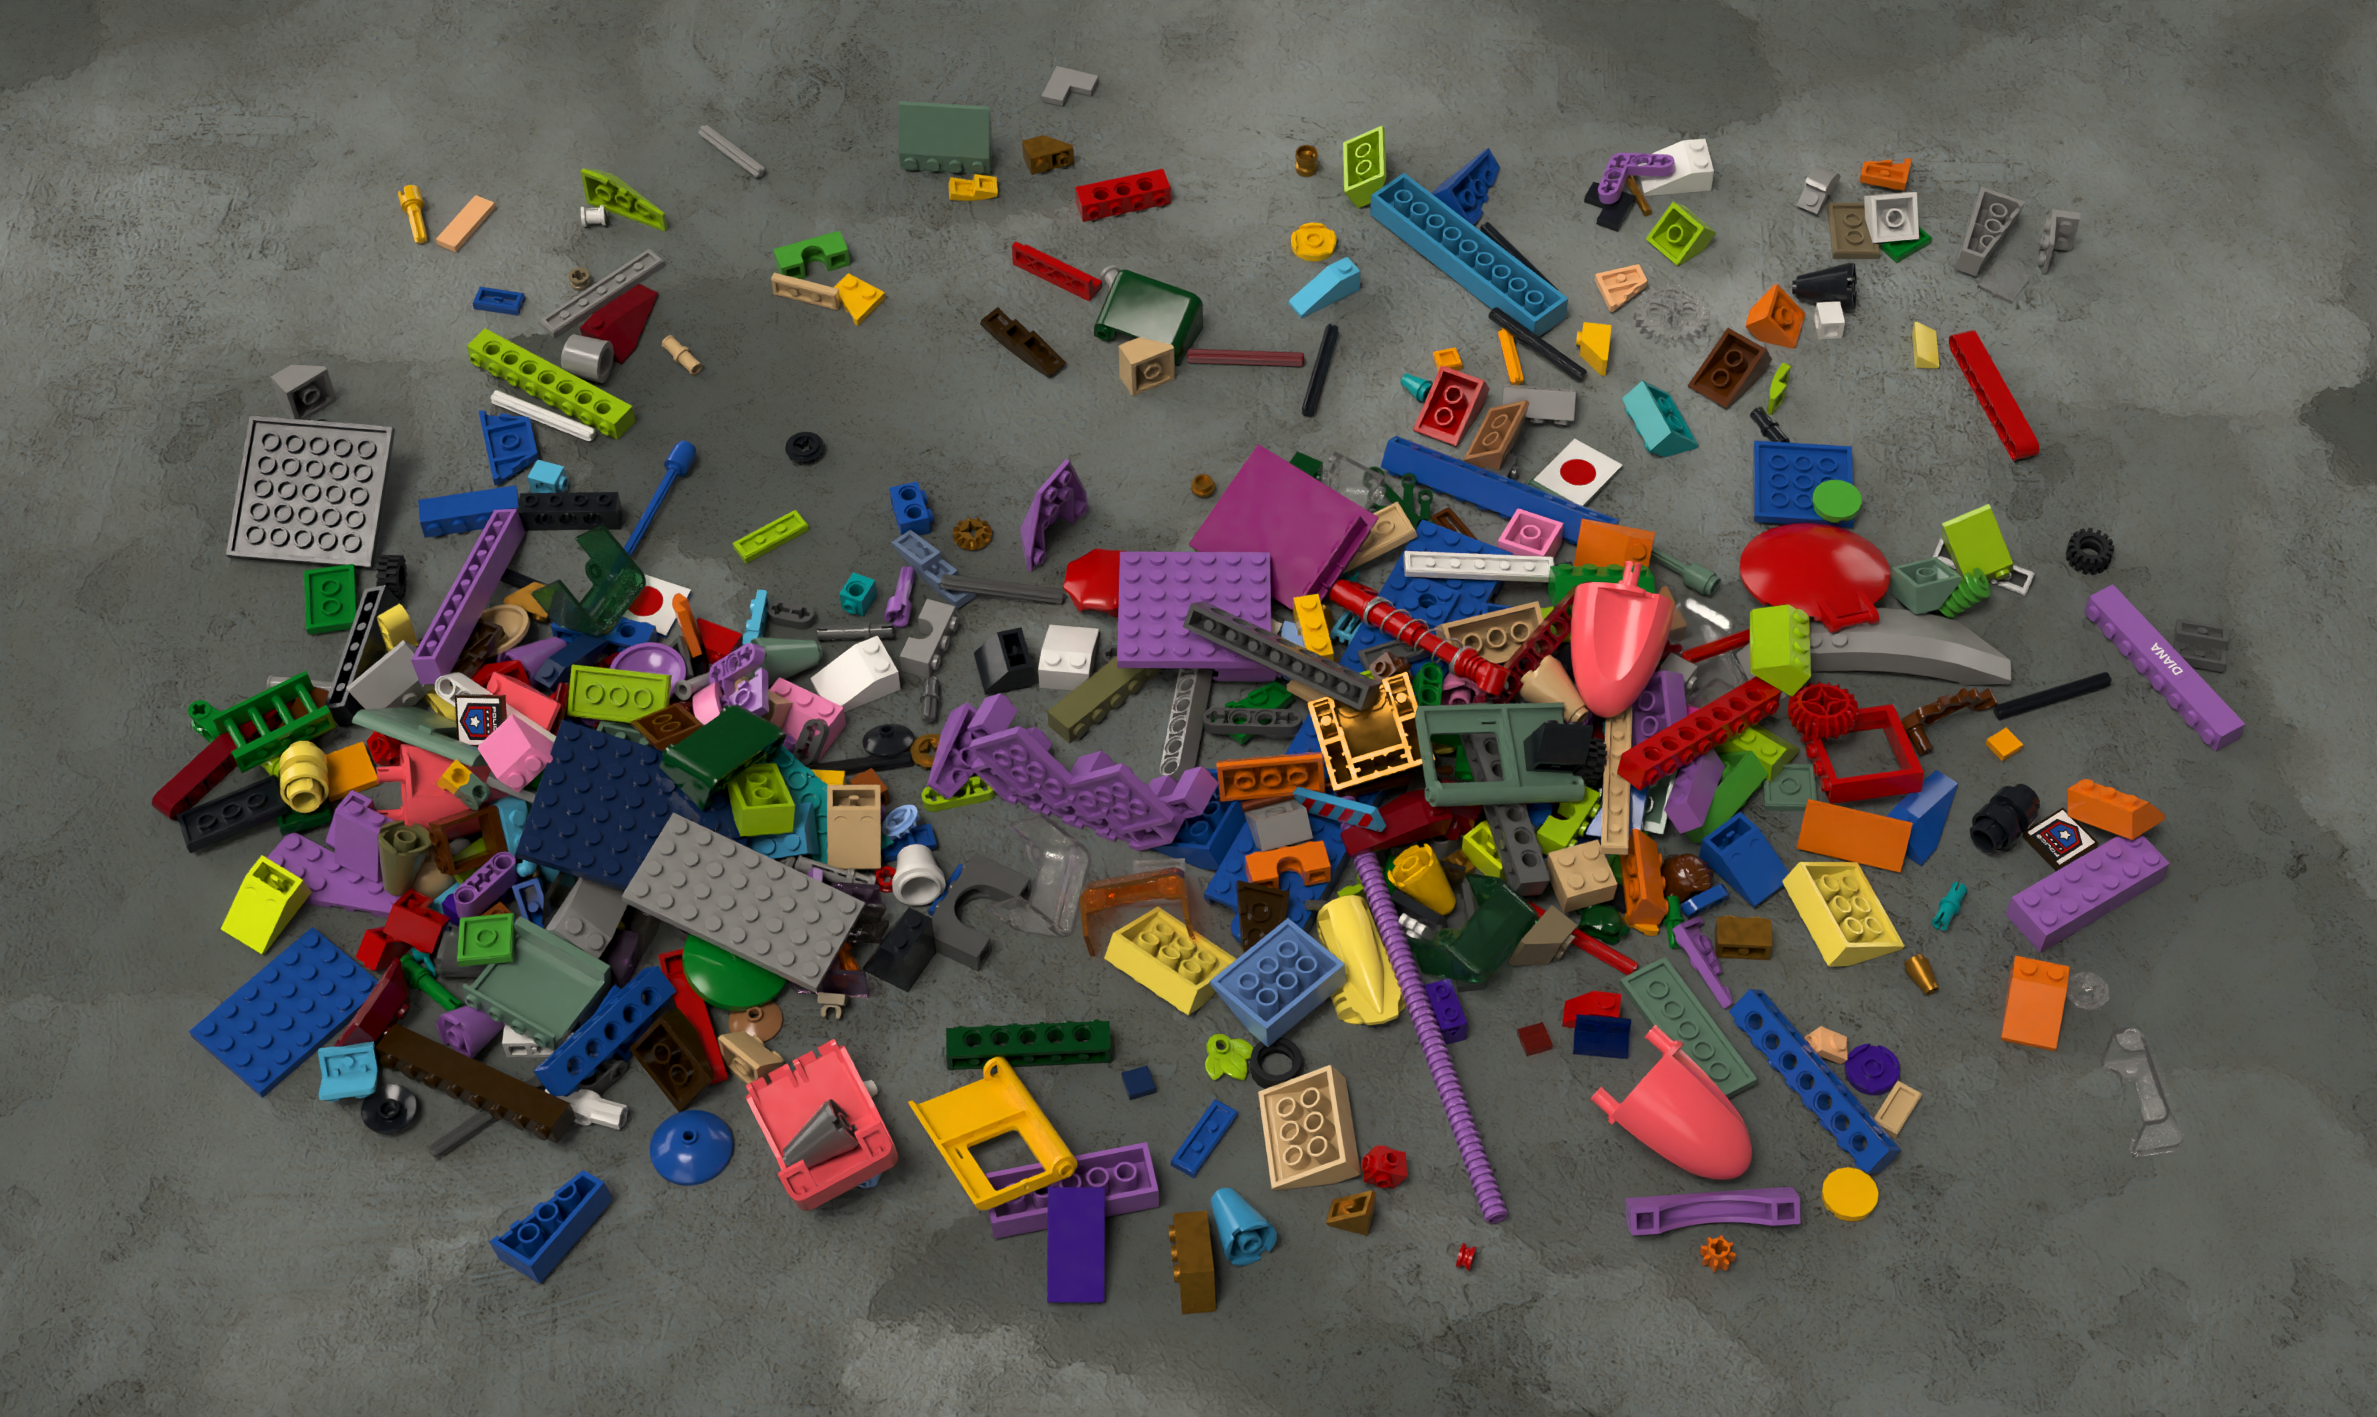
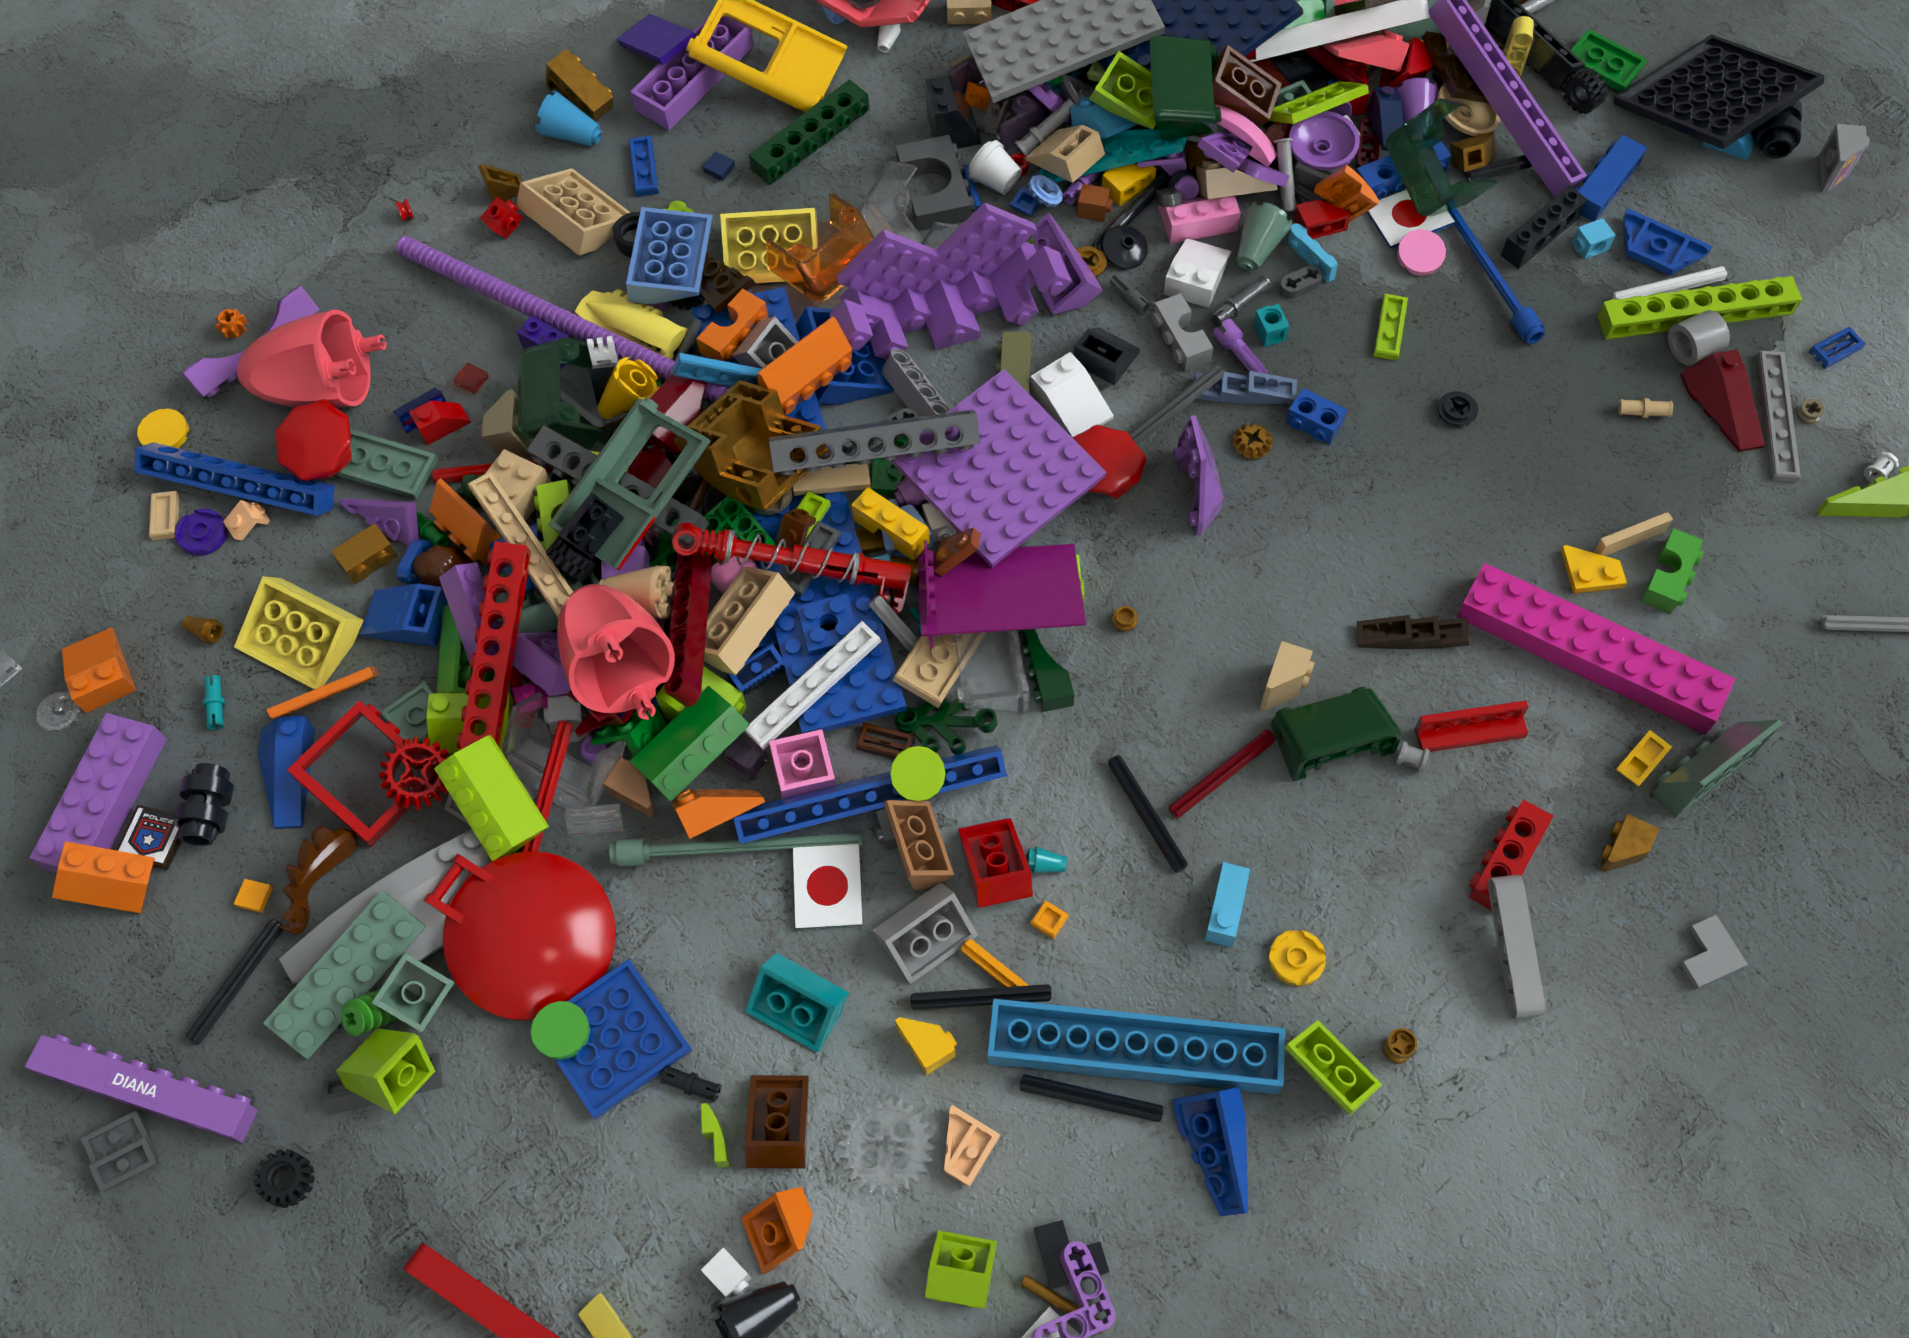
camera: 140 degrees right, 10 degrees up
(678, 565) = (1421, 252): none -> bright pink tile
(924, 254) = (1597, 649): none -> dark pink brick
(1182, 147) = (1516, 946): none -> light grey beam
(1286, 576) = (956, 549): none -> dark orange wing
(1375, 576) = (893, 622): none -> light grey axle
(1460, 461) = (917, 773): none -> lime tile
(1721, 1038) = (314, 441): none -> red piece
(1967, 625) = (344, 973): none -> sand green plate

